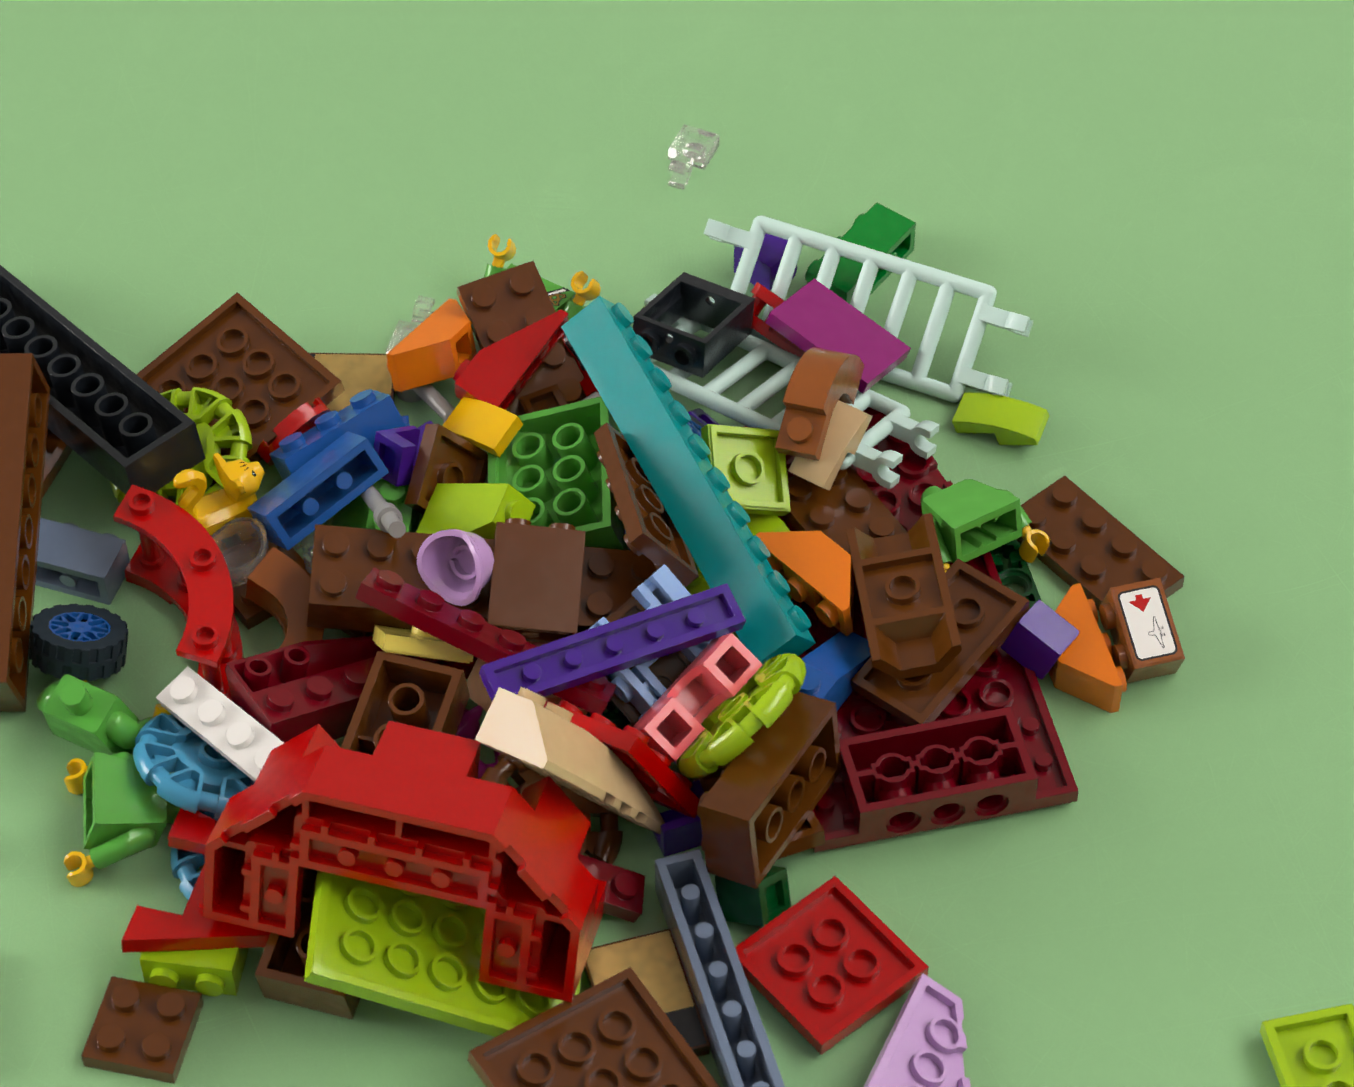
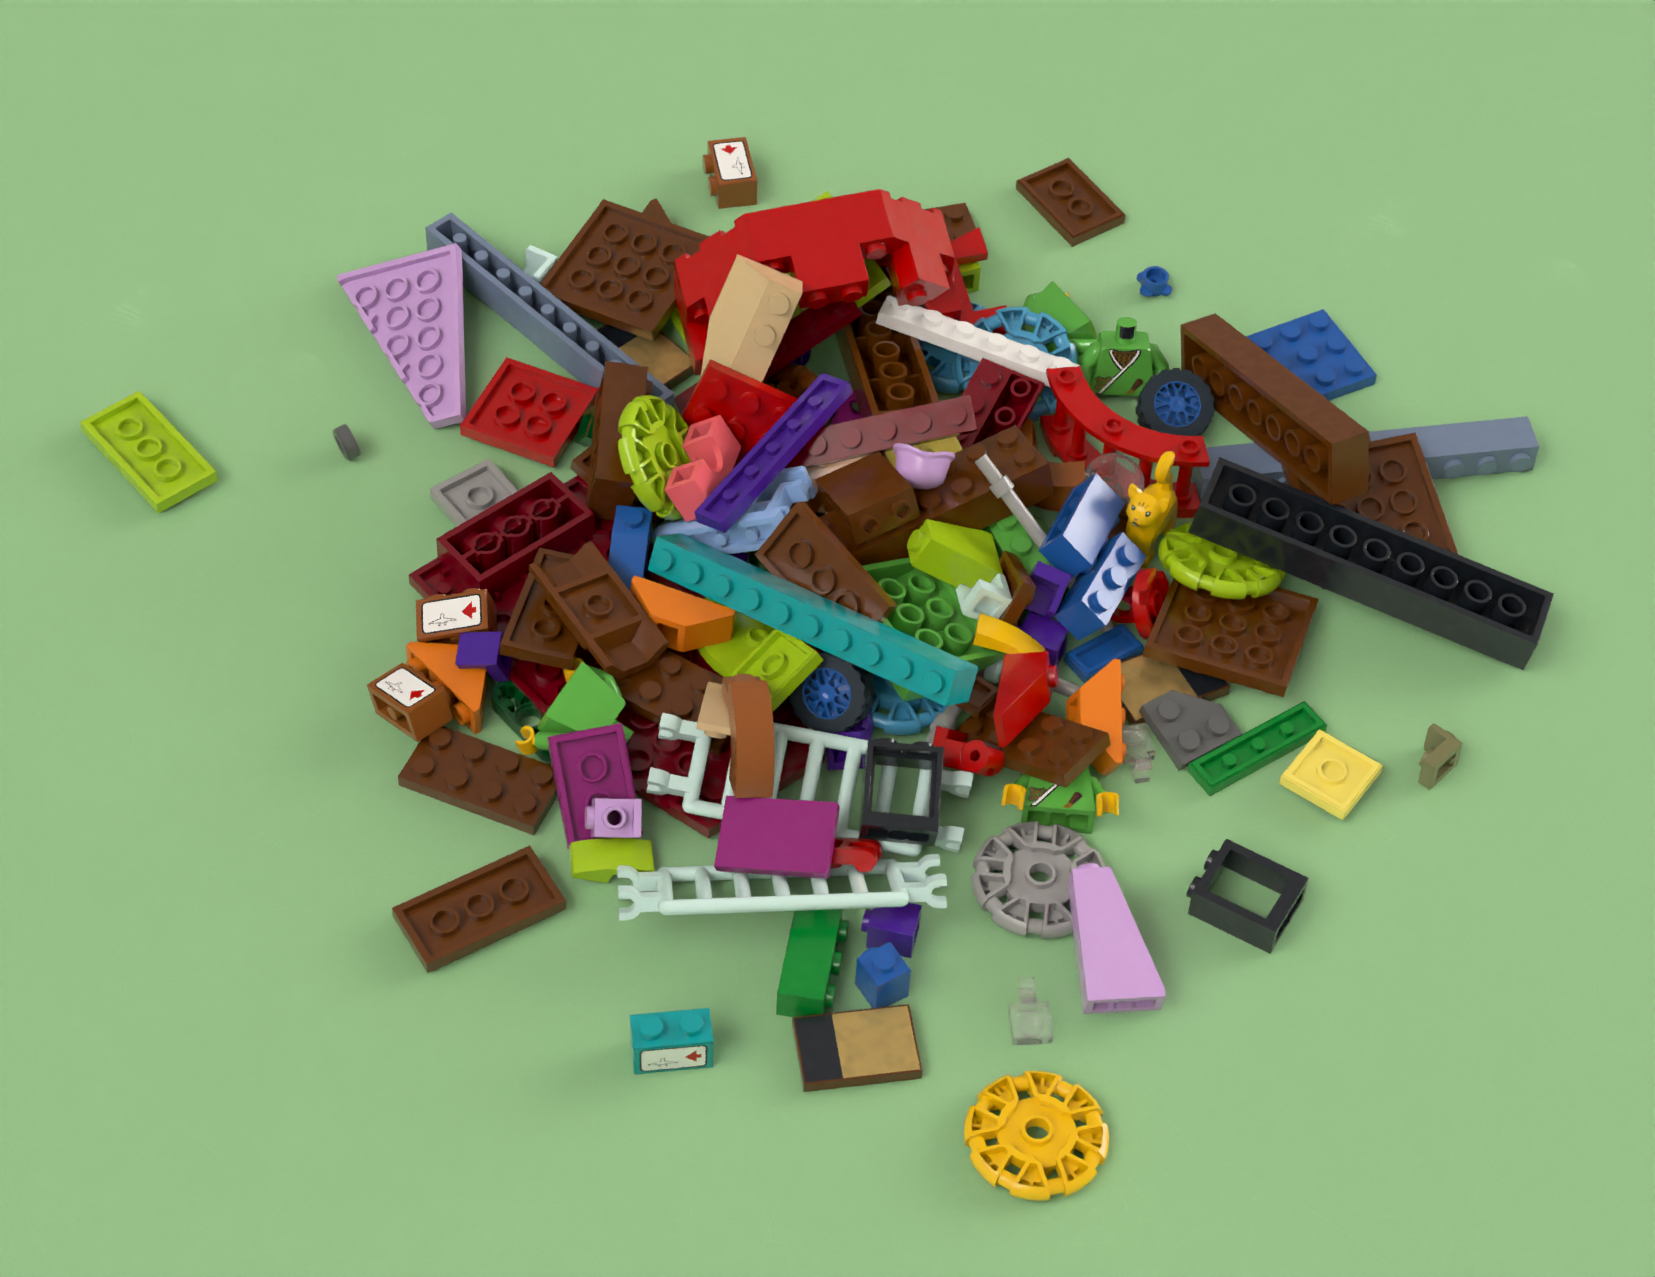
camera: 150 degrees right, 0 degrees up
(139, 212) = (1440, 756): none -> olive bracket
(250, 242) = (1331, 774): none -> light yellow plate
(305, 295) = (1256, 748): none -> green tile
(351, 329) = (1188, 726): none -> dark grey plate
(407, 144) = (1235, 919): none -> black window
(474, 461) = (984, 597): none -> light aqua panel
(571, 243) = (1015, 881): none -> light grey plate
(587, 159) = (1110, 951): none -> lavender slope
(778, 66) = (1036, 1156): none -> yellow plate
(805, 209) = (882, 976): none -> blue brick
(849, 185) = (856, 1048): none -> tile
(949, 866) = (471, 492): none -> light grey plate
(985, 422) = (630, 822): none -> lavender brick
(989, 461) = (589, 767): none -> magenta tile
(1030, 236) = (671, 1041): none -> teal brick
(1054, 688) = (446, 616): none -> brick
(1079, 1007) = (346, 442): none -> dark grey tile
(1156, 419) = (478, 908): none -> reddish brown plate

